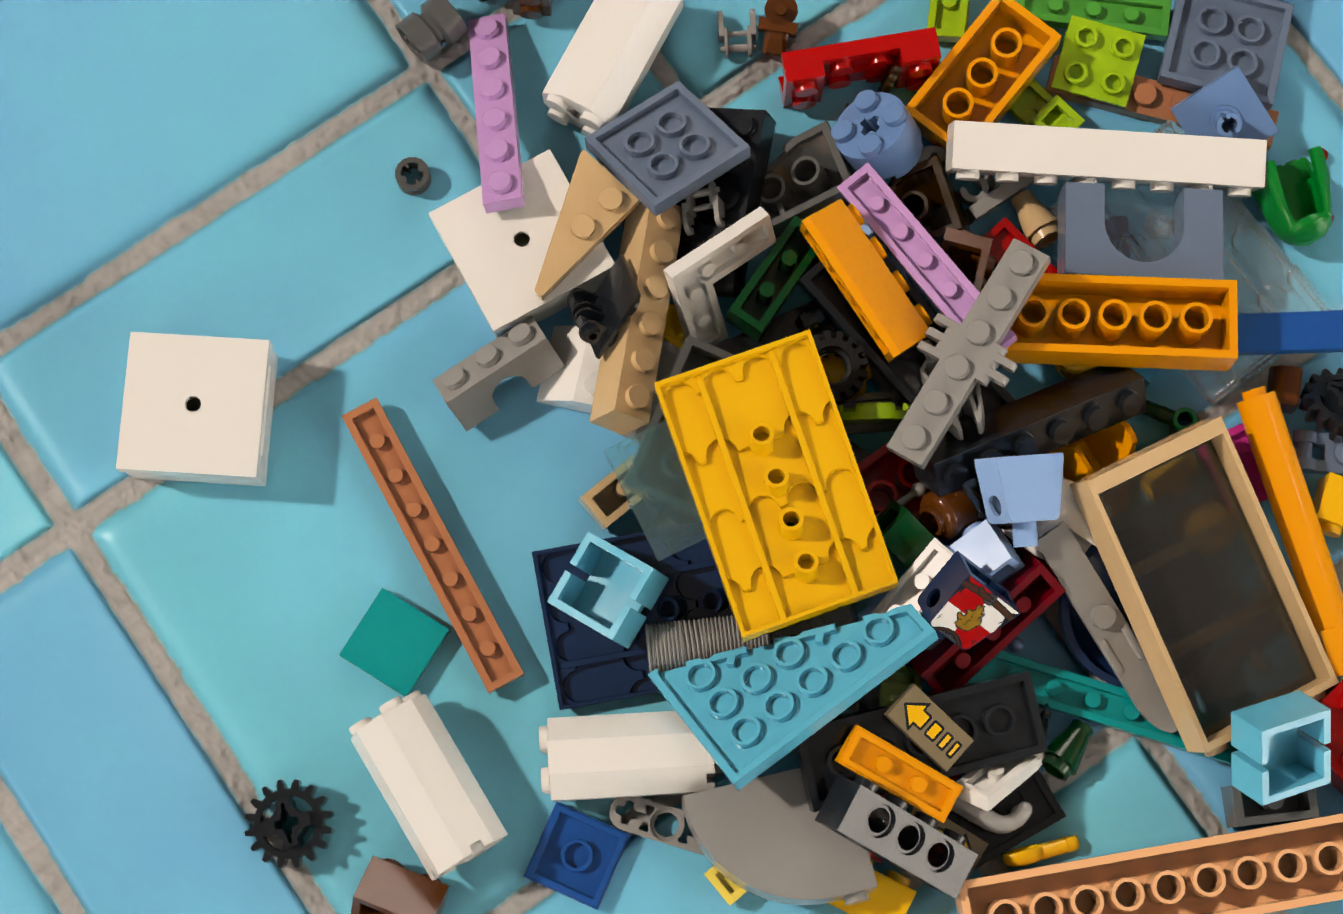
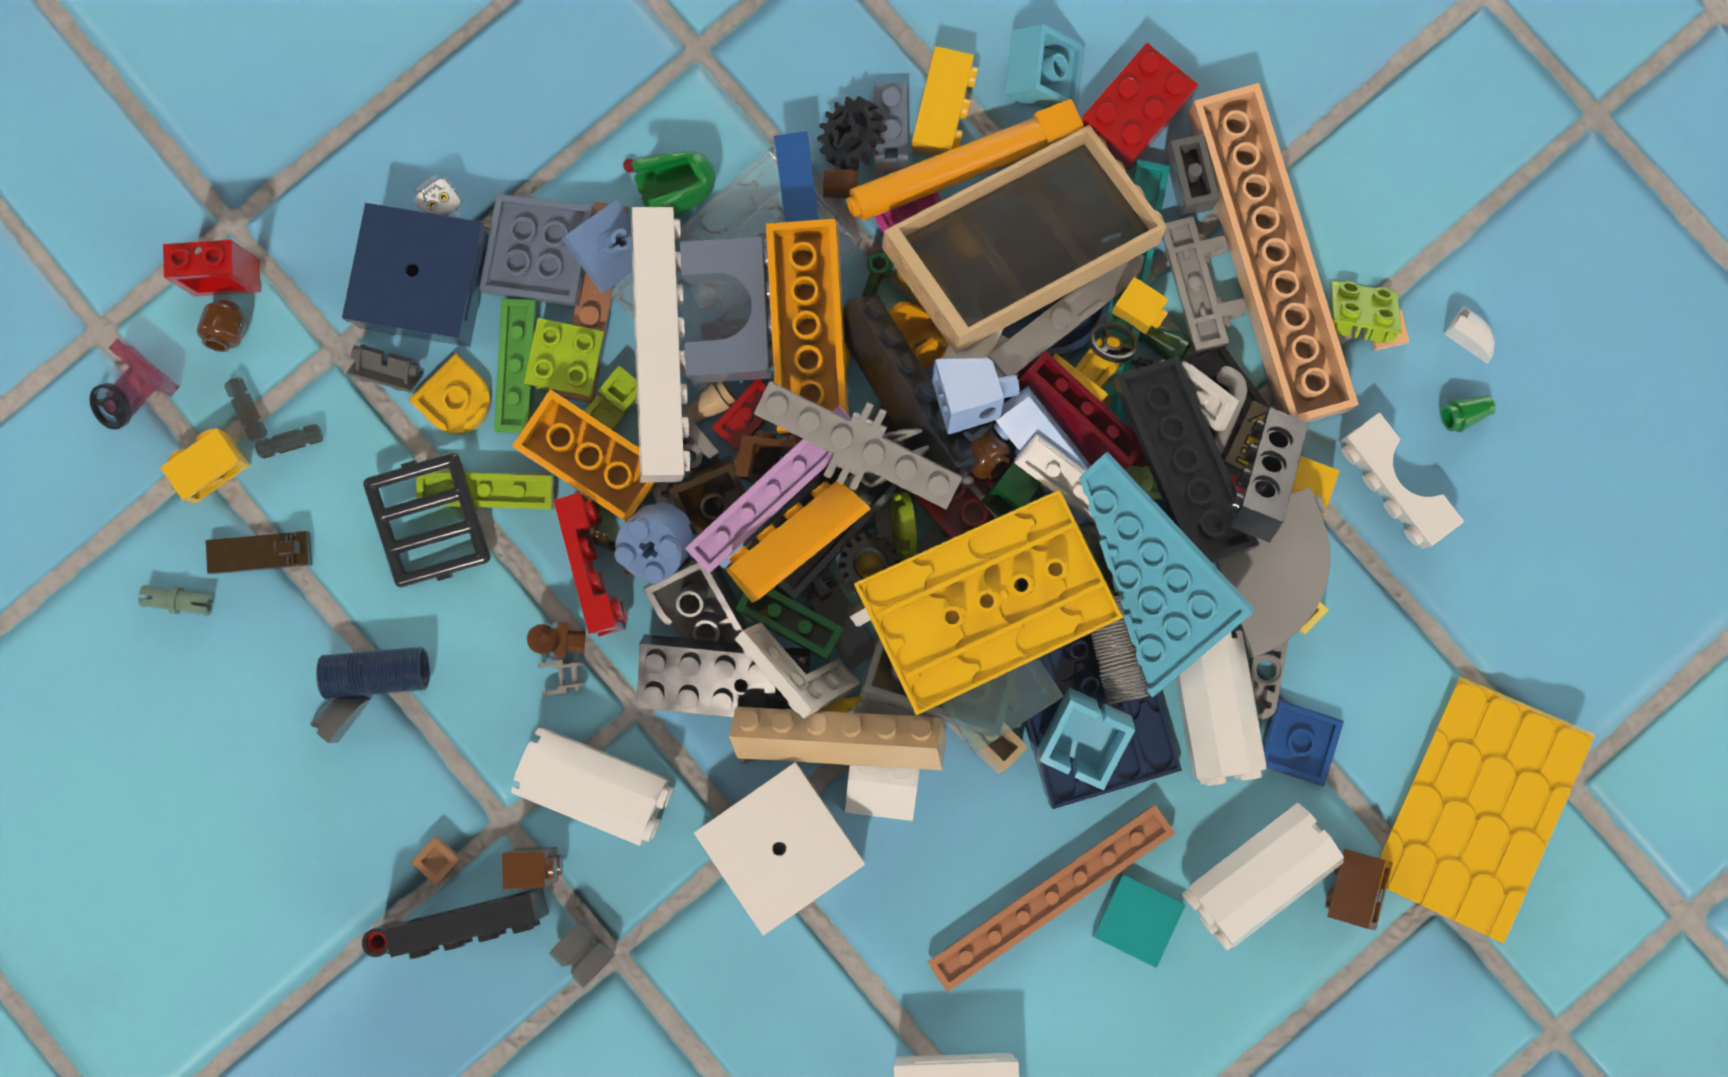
camera: 90 degrees left, 5 degrees up
(286, 805) = (1320, 989): black gear -> none
(407, 164) = (727, 962): dark grey bush -> none
(471, 383) = (879, 841): light grey arch -> none
(496, 113) = (661, 885): lavender plate -> none
(588, 215) = (751, 790): tan wing -> none
(603, 313) = (838, 766): black hinge -> none
(667, 148) = (684, 727): sand blue plate -> none
(690, 210) = (737, 701): light grey piece -> none
(899, 773) = (1218, 477): light orange tile -> none
(928, 727) = (1177, 455): dark tan tile -> none
(965, 603) = (1072, 431): torso -> none
(1036, 852) = (1253, 365): yellow piece -> none
(1046, 664) = (1102, 359): none -> piece
(1103, 797) = (1188, 261): none -> light grey hinge
(1112, 719) = (1141, 306): none -> yellow brick
(1274, 756) = (1156, 166): medium azure piece -> none

